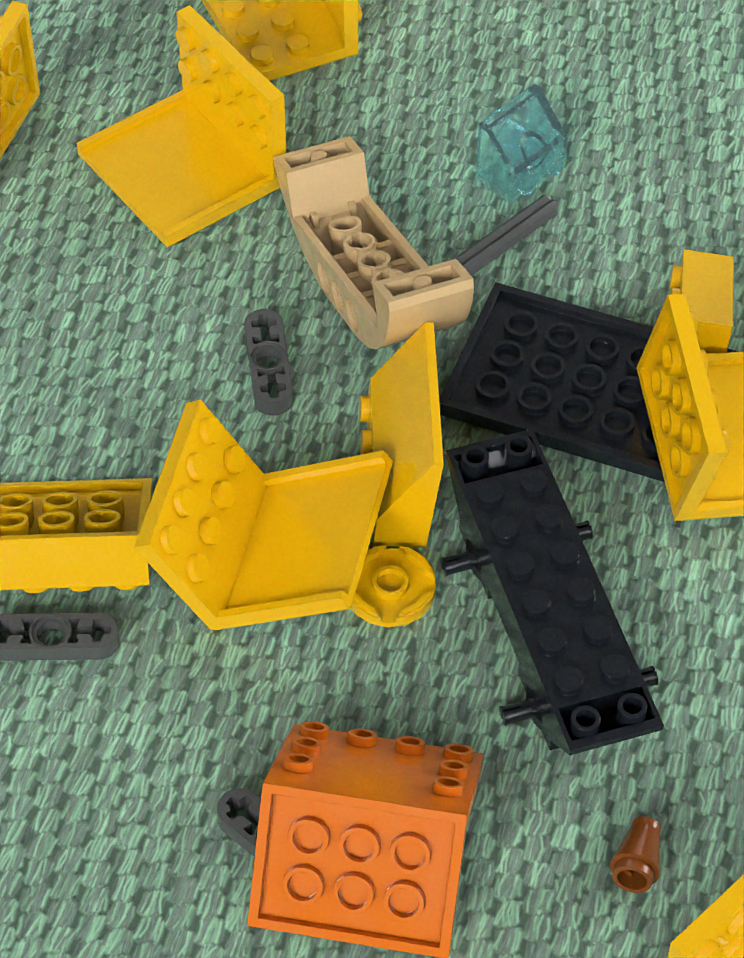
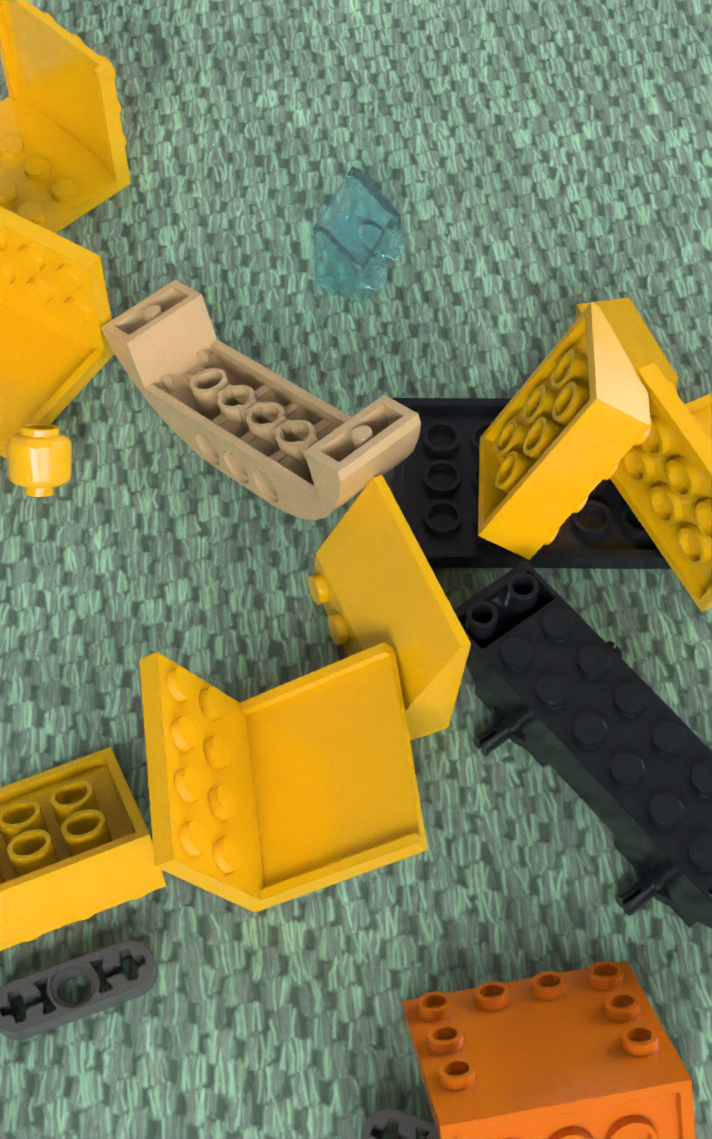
camera: 20 degrees left, 5 degrees up
(185, 247) = (39, 459): none -> yellow head
(276, 348) = (183, 584): dark grey beam -> none
(390, 600) = (451, 804): yellow tile -> none
(508, 234) = (372, 348): dark grey axle -> none
(596, 342) = (560, 437): none -> yellow slope

